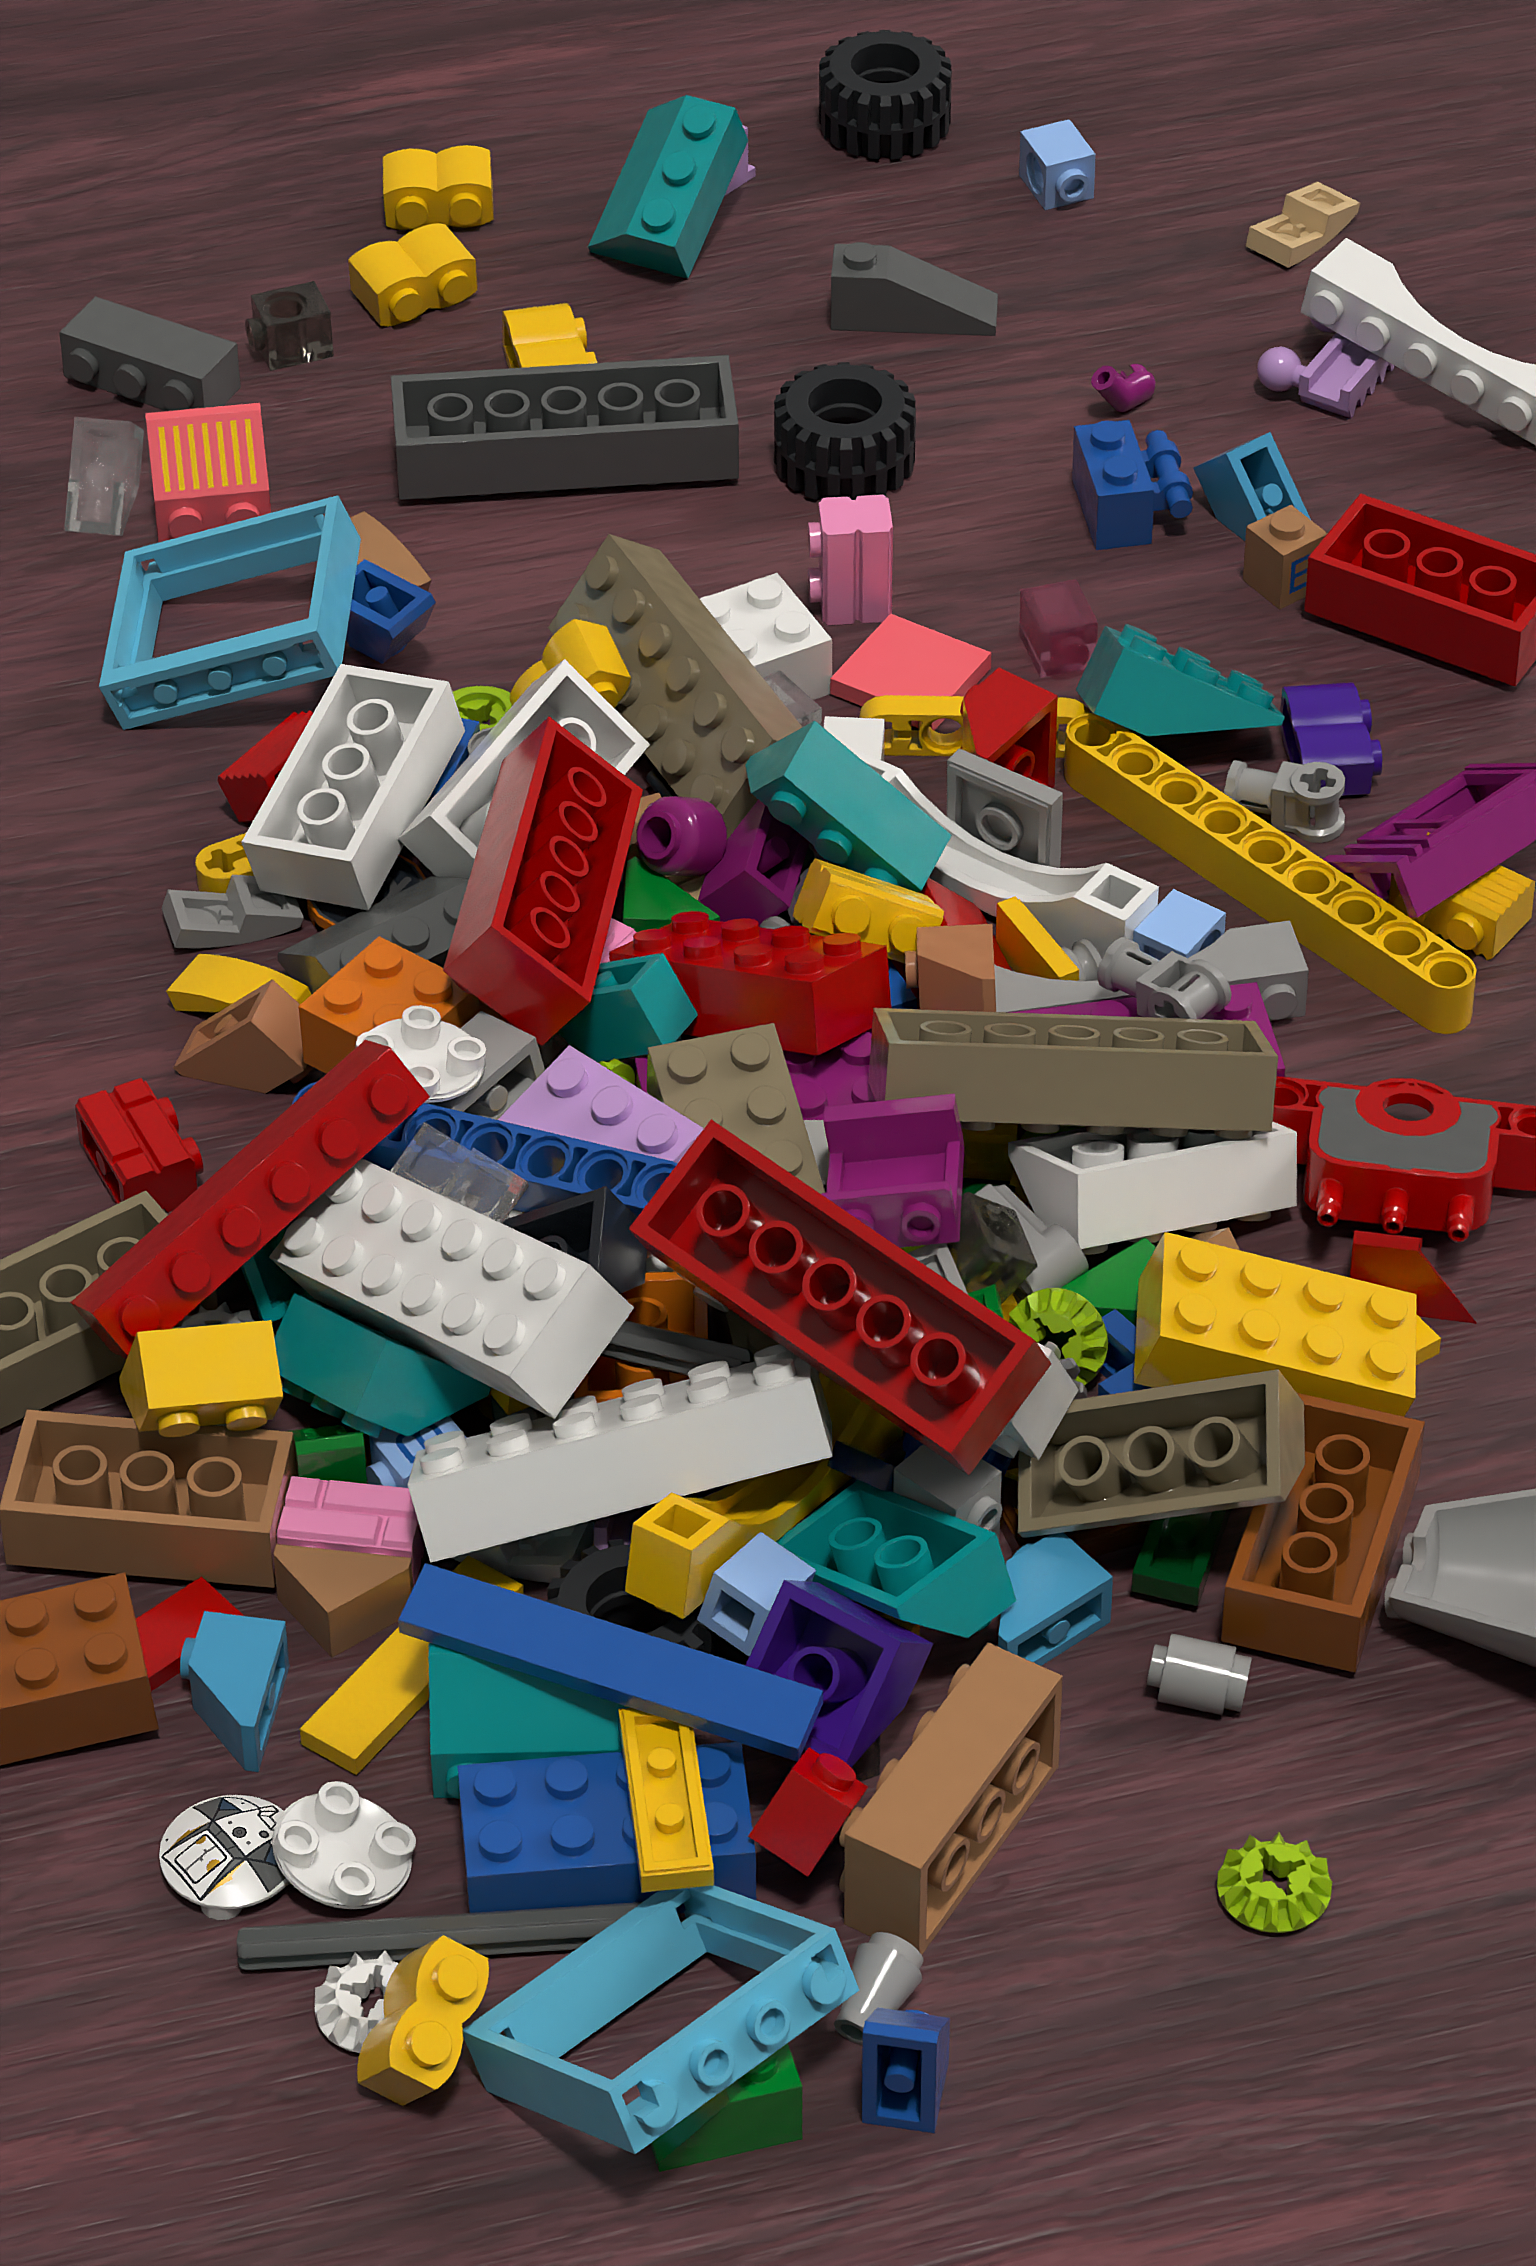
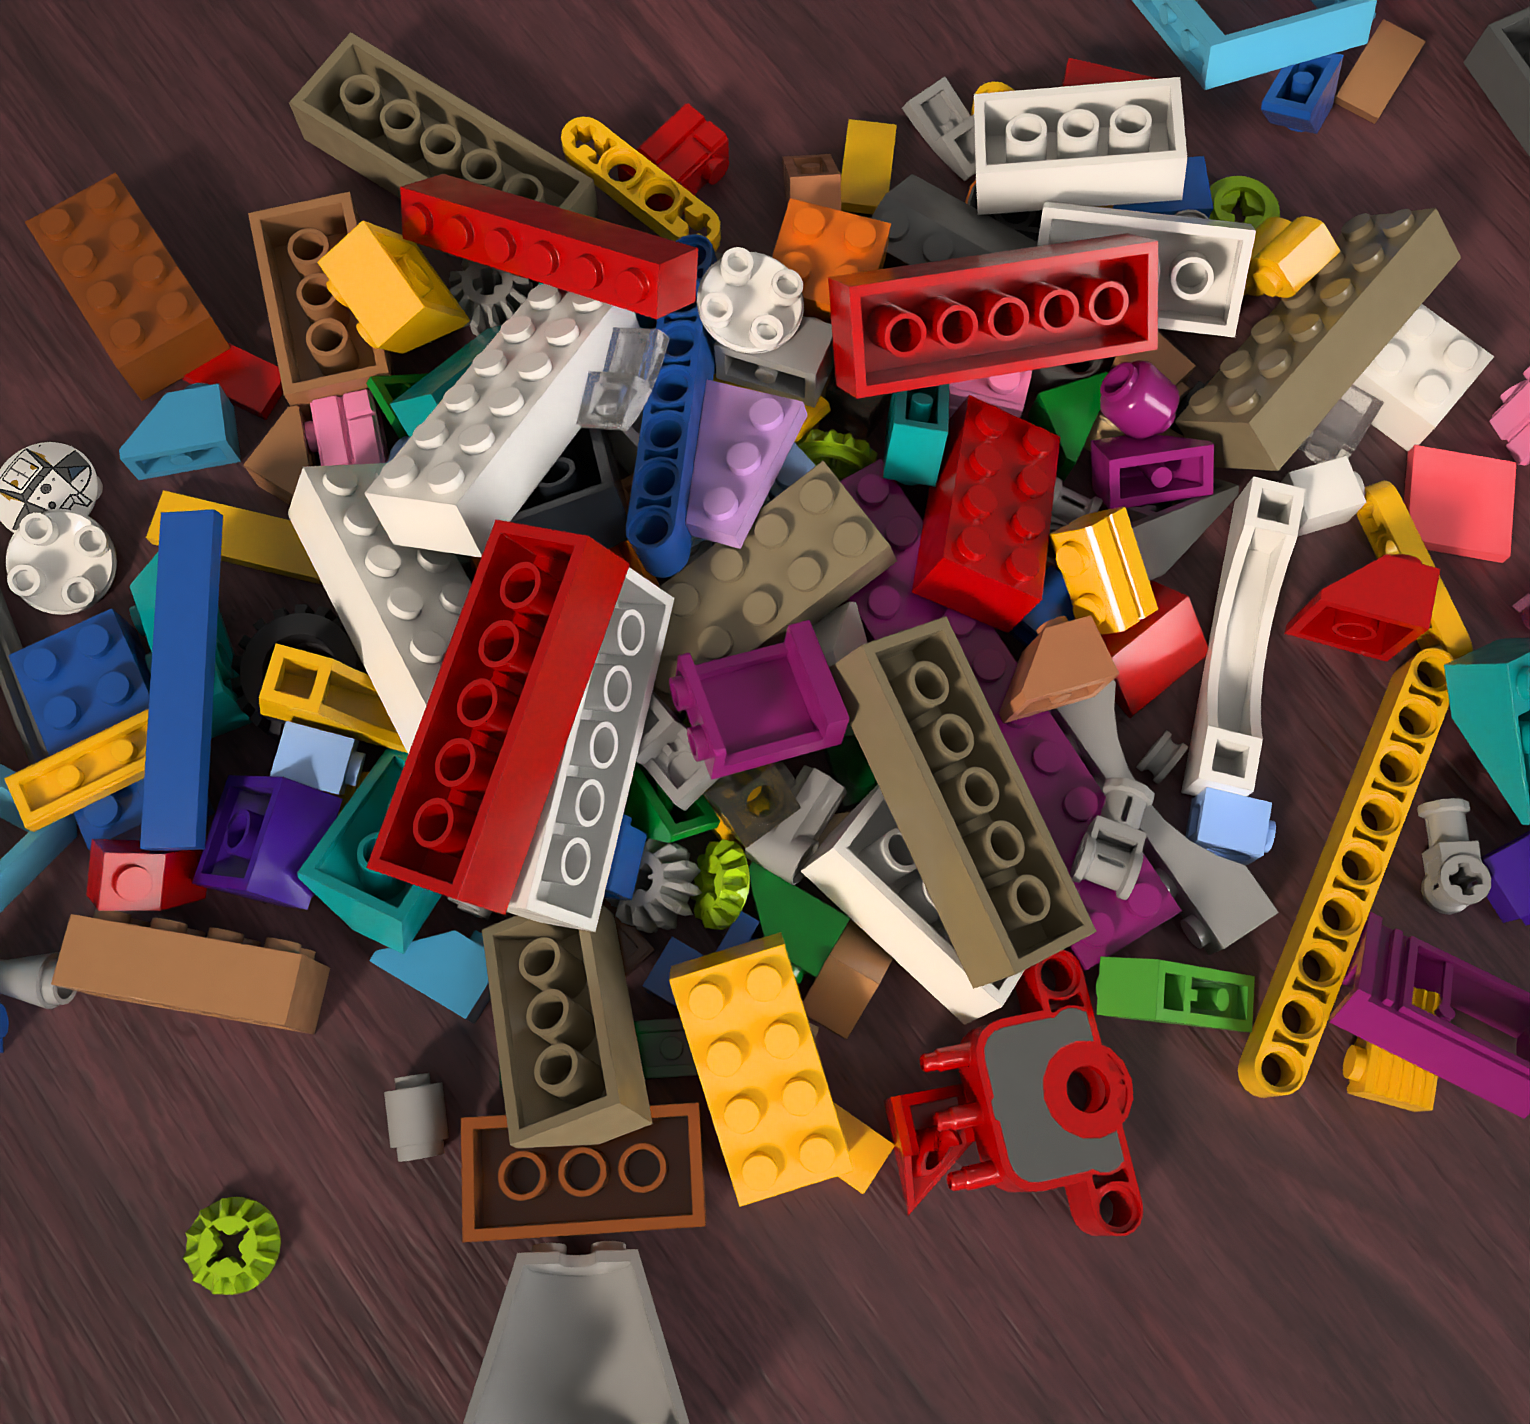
camera: 65 degrees right, 30 degrees up
(166, 1148) = (645, 183): none -> yellow beam
(846, 808) = (1195, 511): teal slope -> none
(1005, 809) = (1291, 636): light grey tile -> none
(1028, 945) = (1161, 717): yellow tile -> none
(1334, 1026) = (1174, 993): none -> bright green slope

